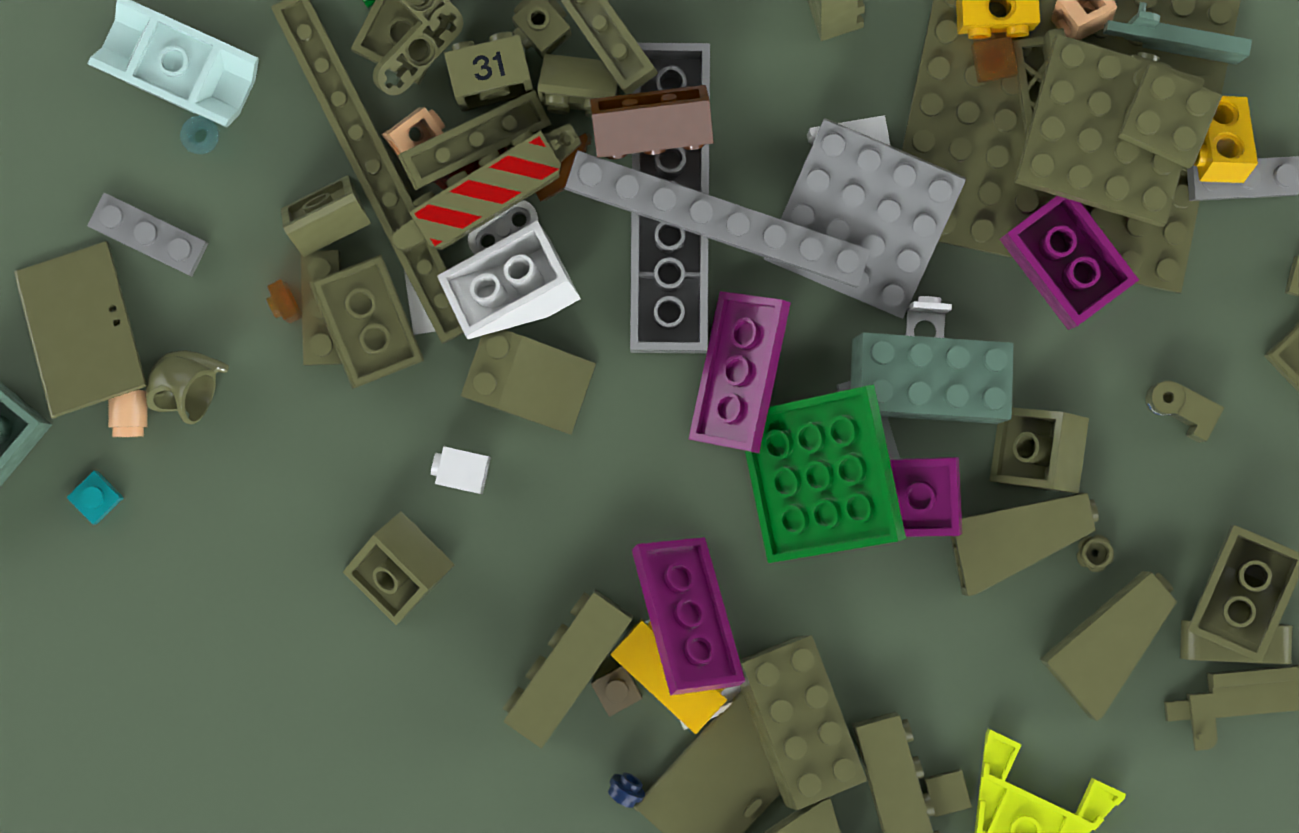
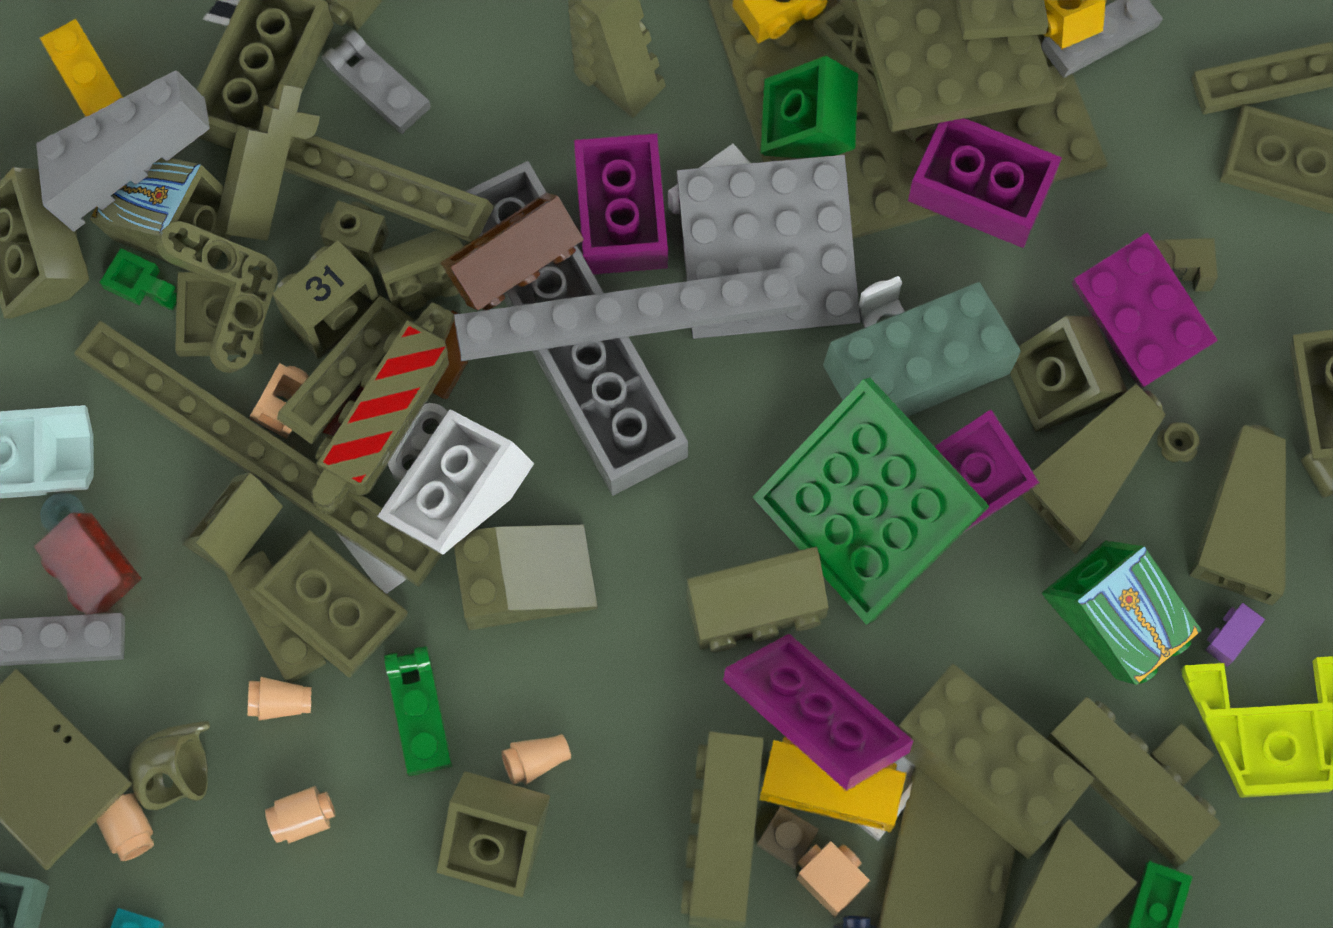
camera: 25 degrees left, 15 degrees down
(197, 189) = (87, 563): none -> clear red brick
(262, 475) = (300, 815): none -> light nougat brick
(283, 302) = (232, 629): clear orange plate -> none
(290, 375) = (277, 699): none -> light nougat cone
(391, 442) = (418, 713): none -> green plate
(459, 527) = (533, 758): none -> light nougat cone
(461, 469) = (504, 698): white brick -> none
(632, 739) = (832, 876): none -> light nougat brick
(692, 504) = (757, 600): none -> olive slope
(739, 371) = (731, 451): magenta plate -> none
(766, 116) = (621, 203): none -> magenta brick
(963, 121) = (810, 111): none -> green slope
(969, 661) = (1123, 610): none -> green slope
(994, 59) = (805, 42): clear orange plate -> none
(1044, 725) = (1234, 635): none -> medium lavender piece
(1129, 438) = (1143, 310): none -> magenta brick

